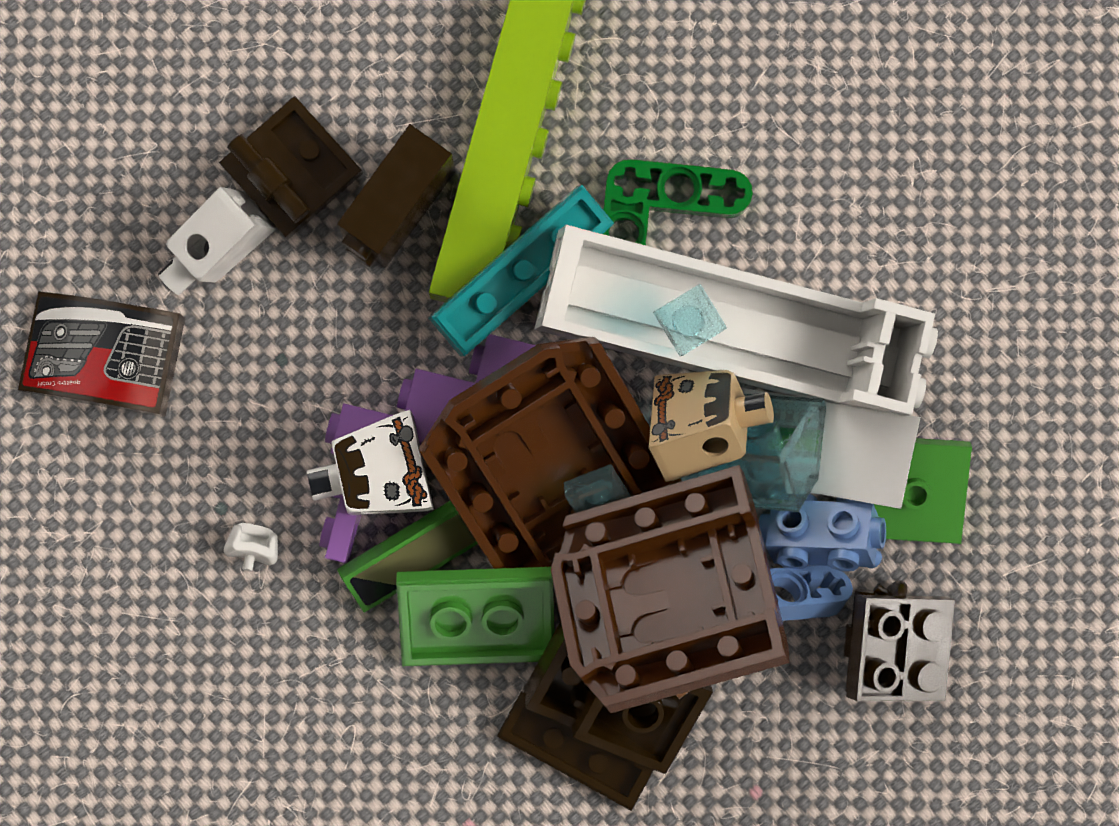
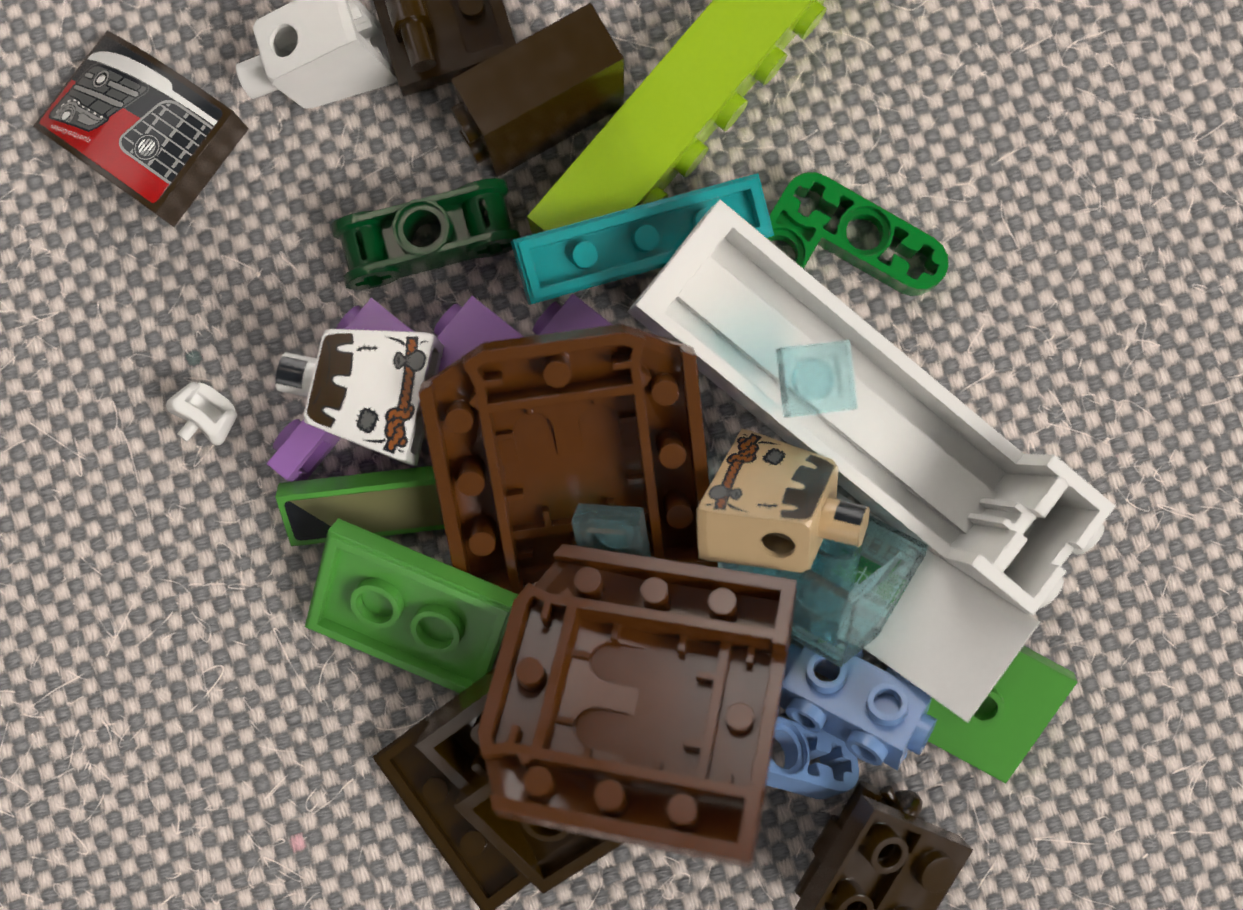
camera: 25 degrees right, 0 degrees up
(329, 348) = (381, 241): none -> dark green piece

